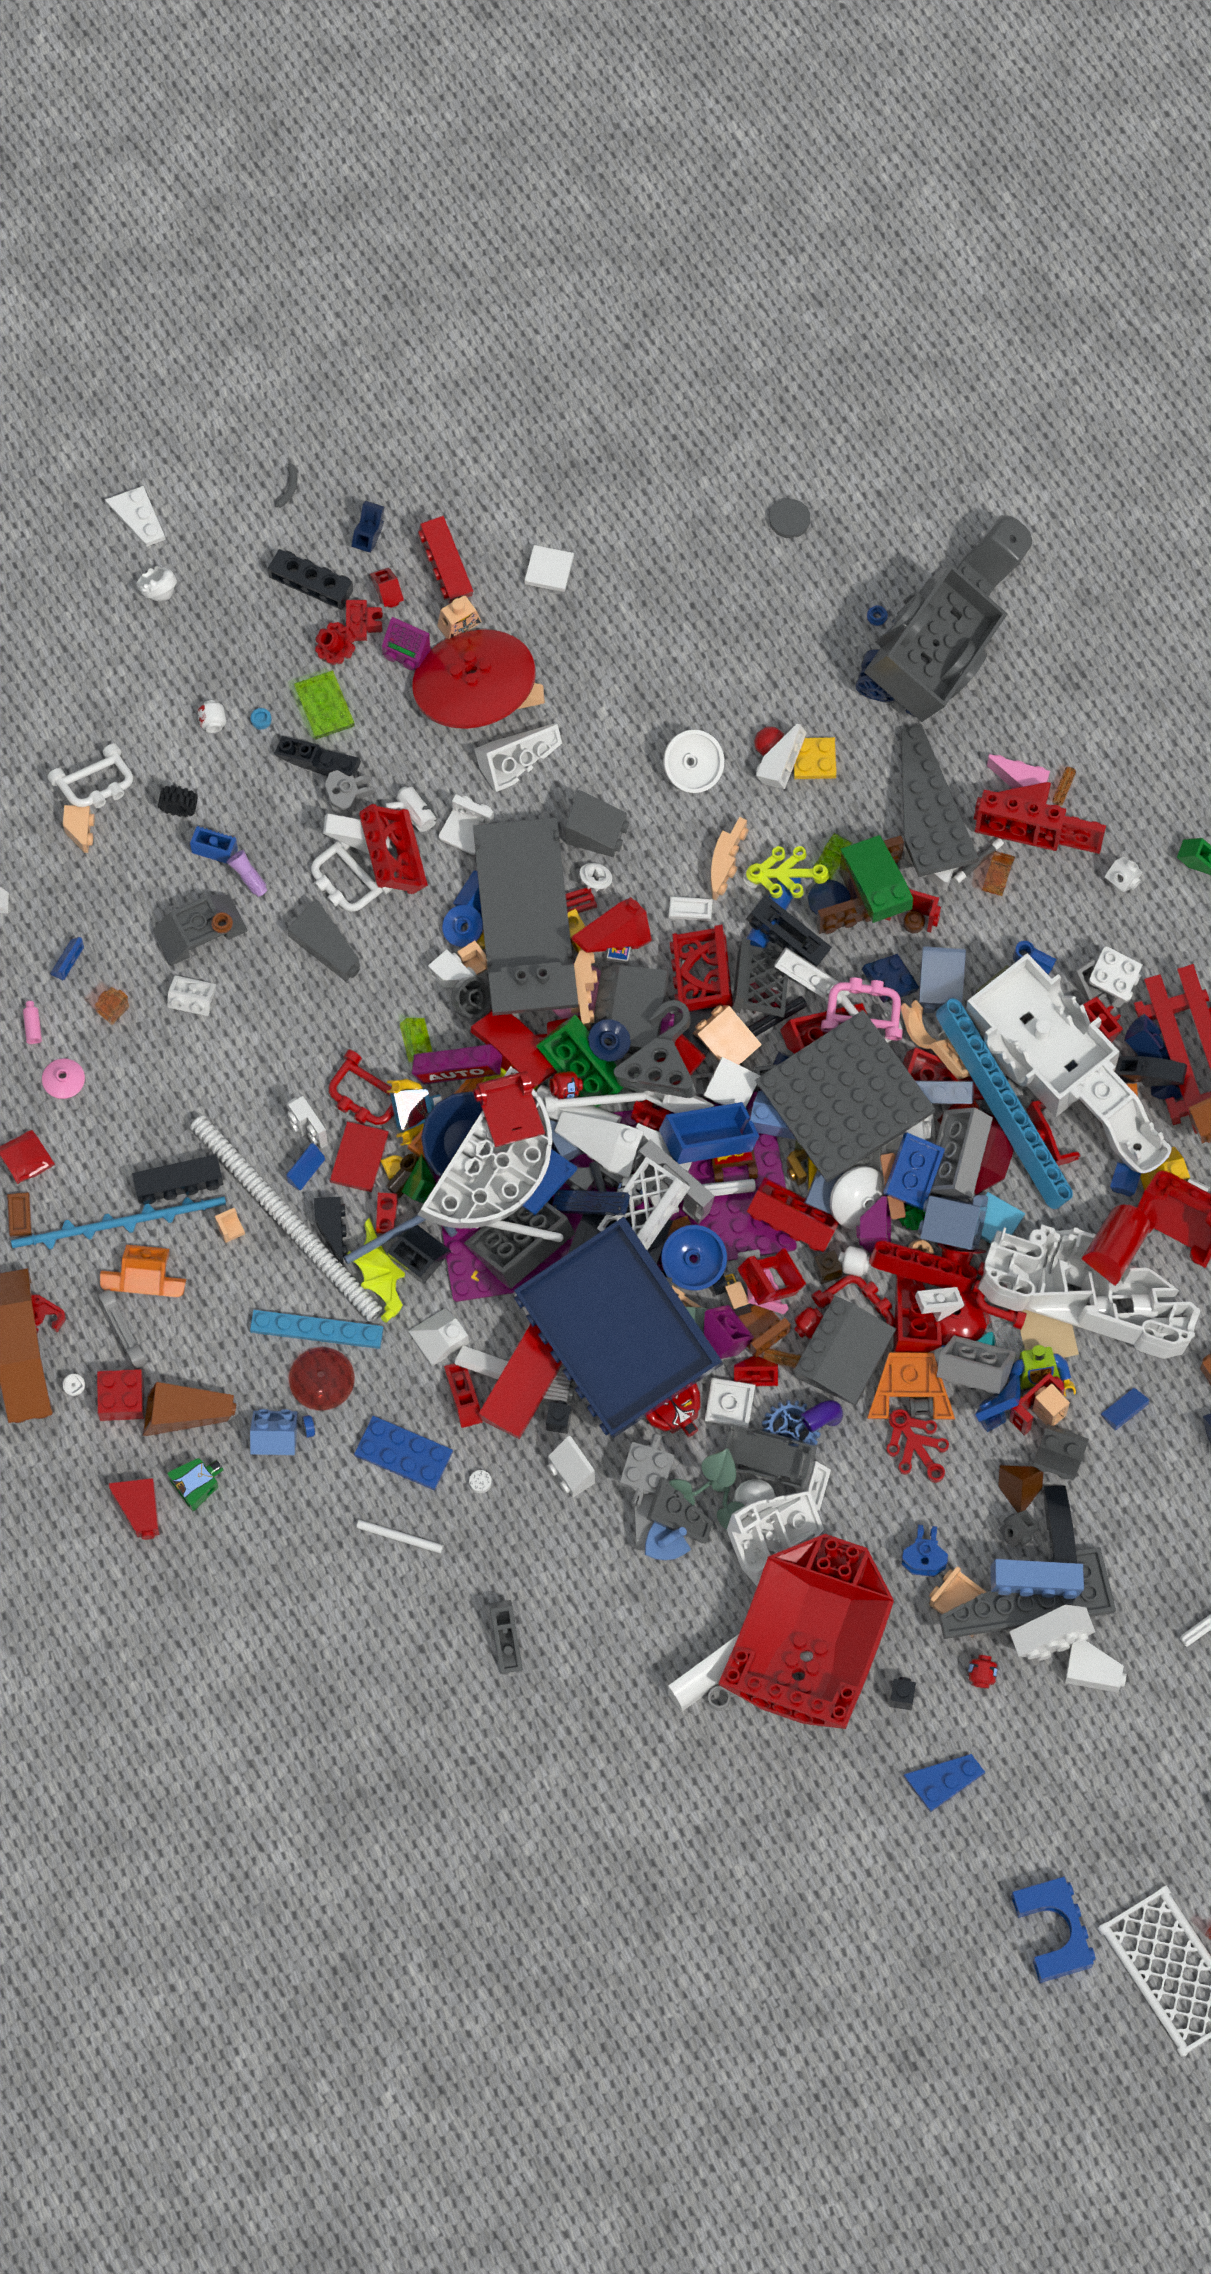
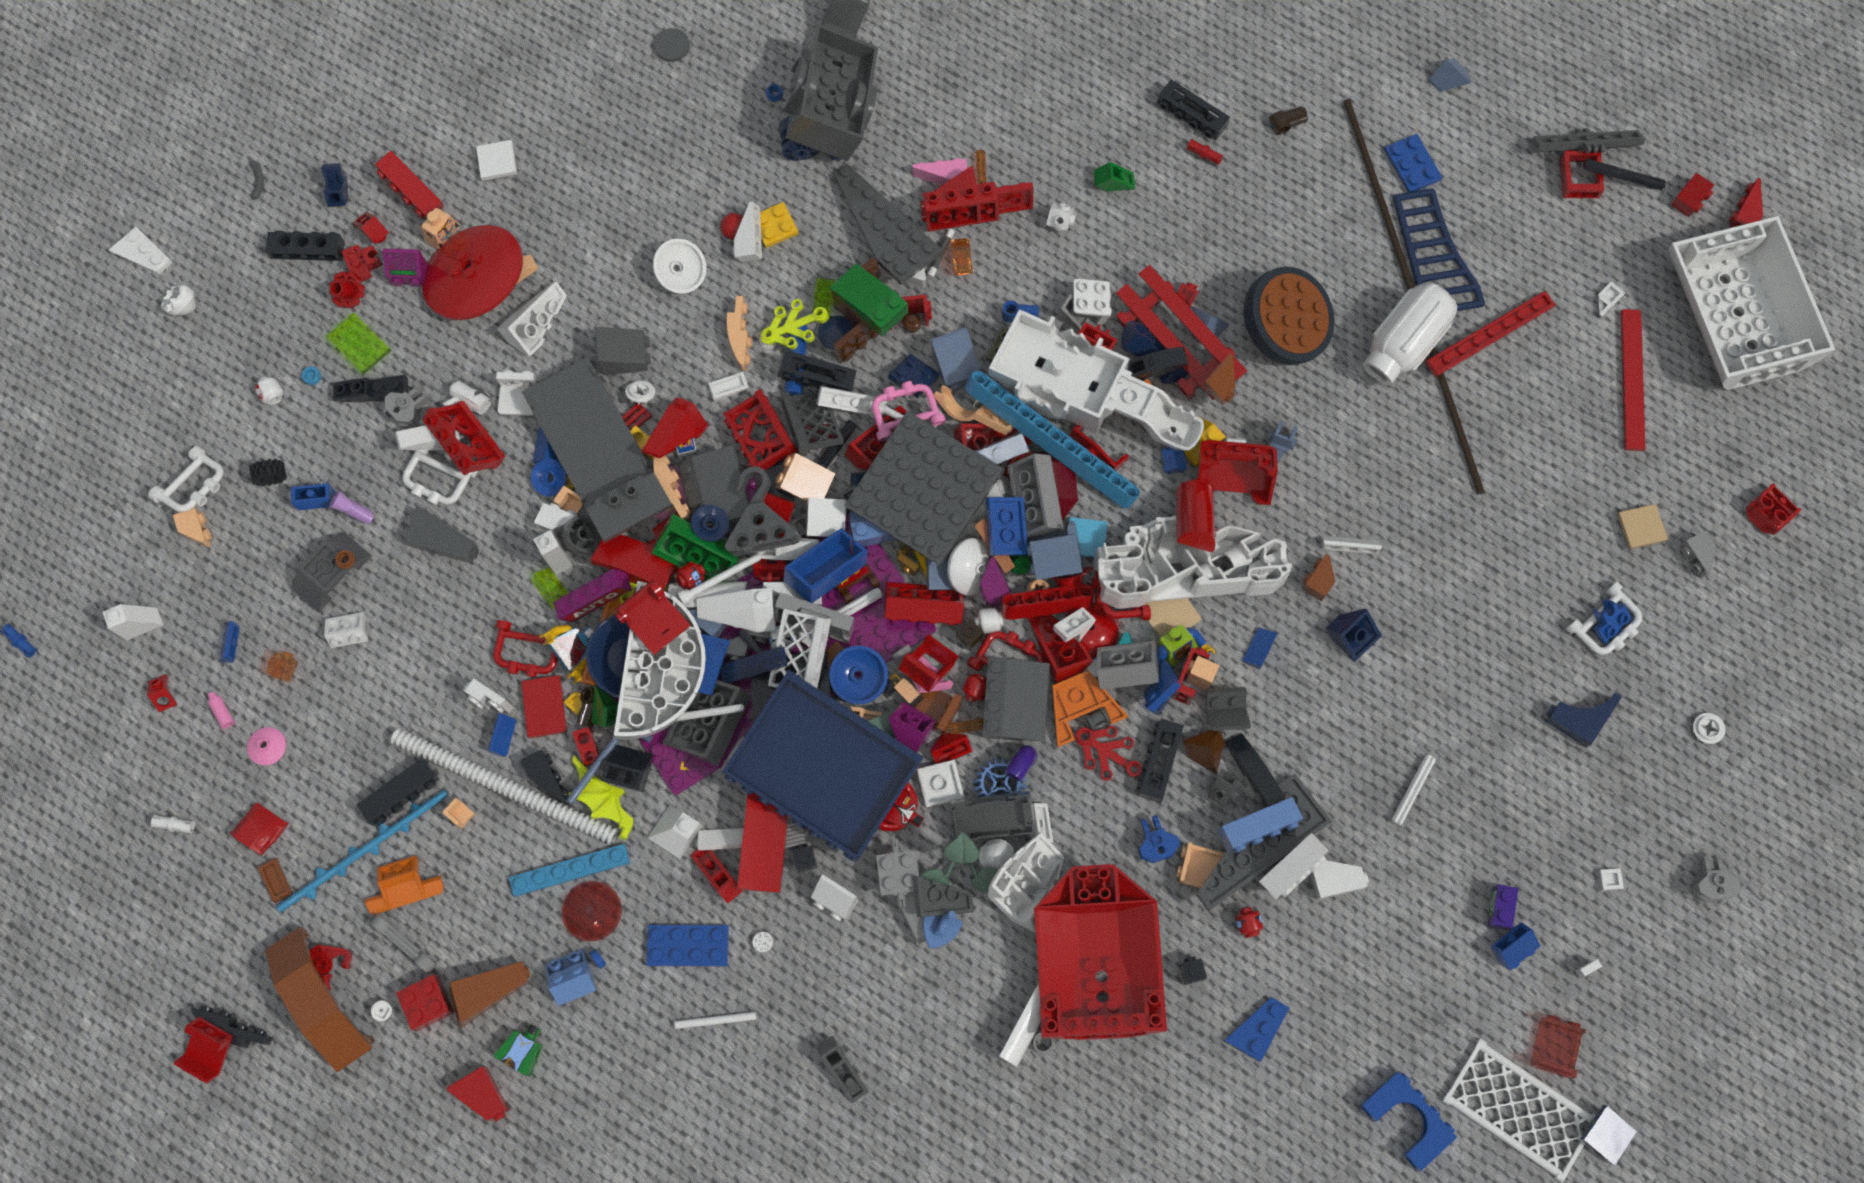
camera: 20 degrees left, 5 degrees up
(436, 1003) = (553, 552): none -> white slope
(990, 1449) = (1168, 729): none -> black brick

